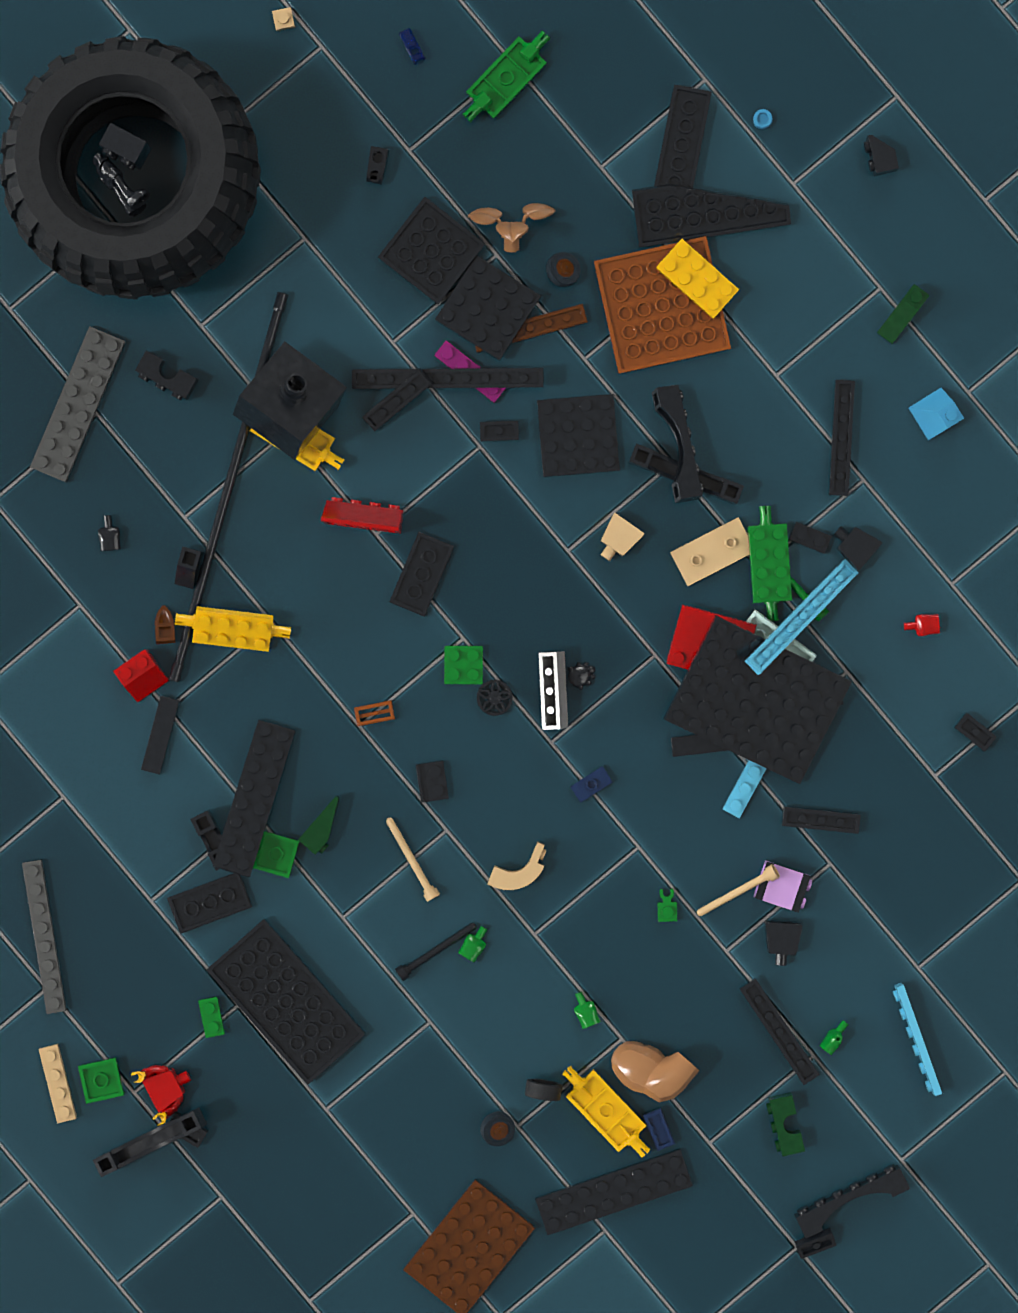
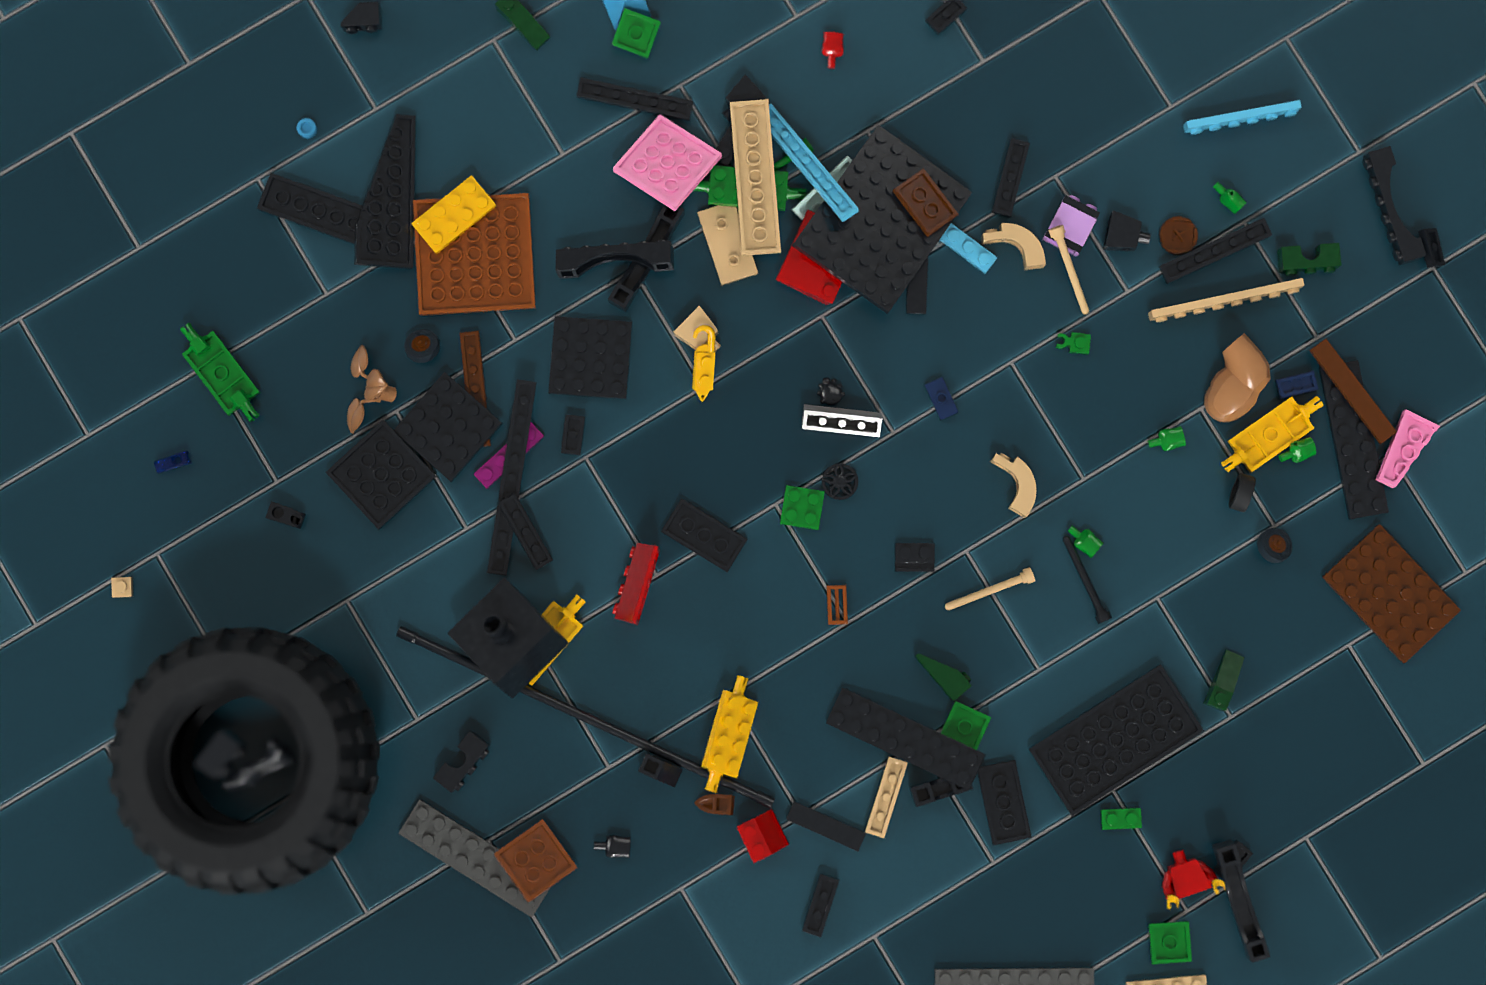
camera: 85 degrees left, 5 degrees down
(83, 461) = (535, 861): none -> dark orange plate
(84, 741) = (820, 905): none -> black plate
(196, 788) = (886, 797): none -> tan plate
(358, 1098) = (1224, 681): none -> dark green slope
(588, 547) = (704, 363): none -> yellow plate
(594, 1140) = (1299, 450): none -> green piece
(615, 1243) = (1405, 447): none -> bright pink wing
(660, 1184) = (1353, 391): none -> reddish brown tile
(727, 1041) = (1218, 302): none -> tan plate
(758, 845) = (1020, 237): none -> tan arch
(779, 568) = (755, 177): none -> tan plate
(780, 739) = (925, 202): none -> reddish brown tile
(781, 479) = (667, 162): none -> bright pink plate
(789, 993) = (1178, 235): none -> reddish brown tile
(907, 428) = (636, 33): none -> green plate

